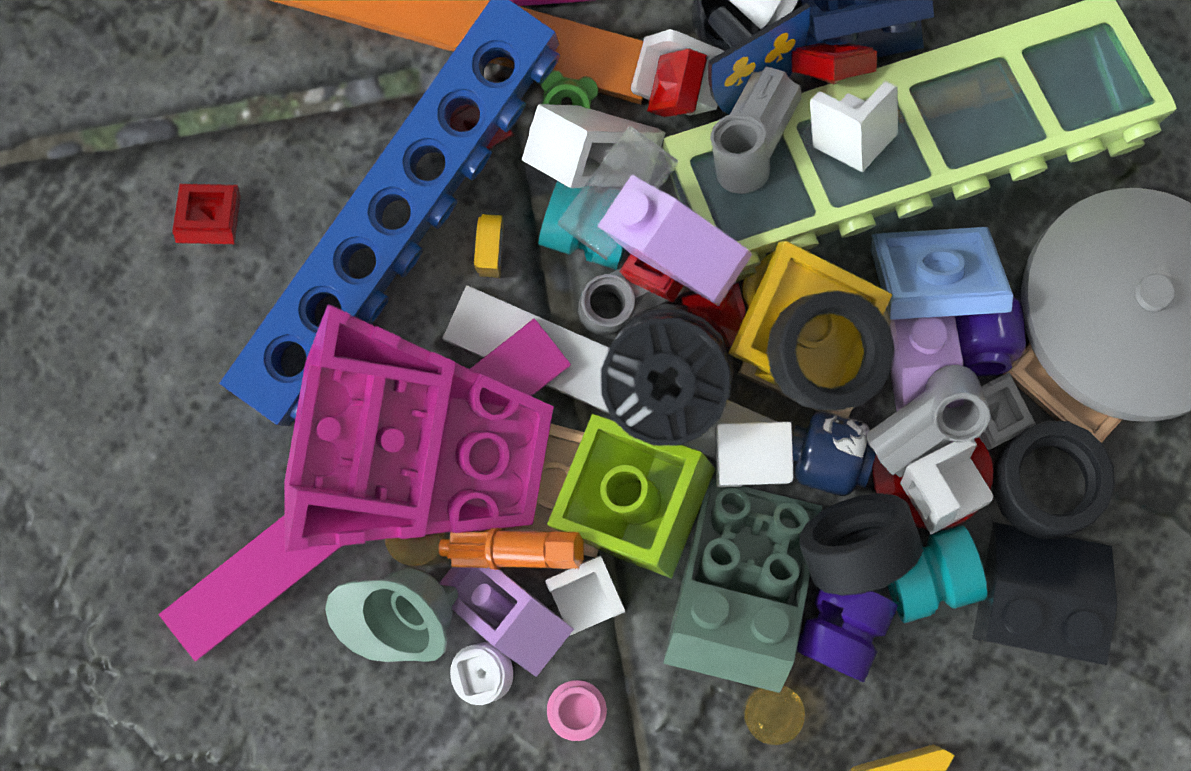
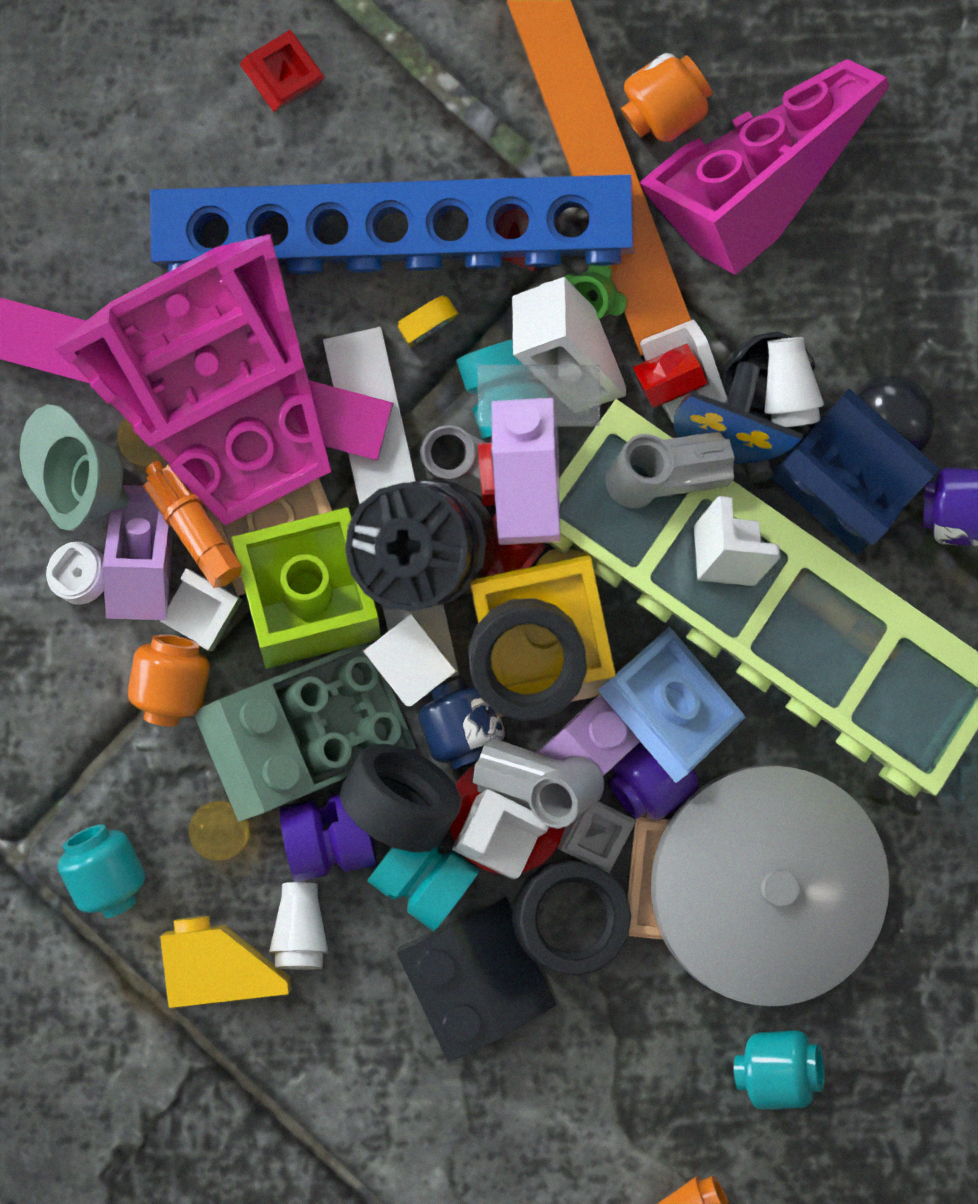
camera: 50 degrees right, 5 degrees up
(576, 710) = (104, 670): bright pink plate -> none
(623, 663) = (168, 679): none -> orange head
(834, 62) = (778, 491): red tile -> none
(903, 708) = (299, 929): none -> white cone

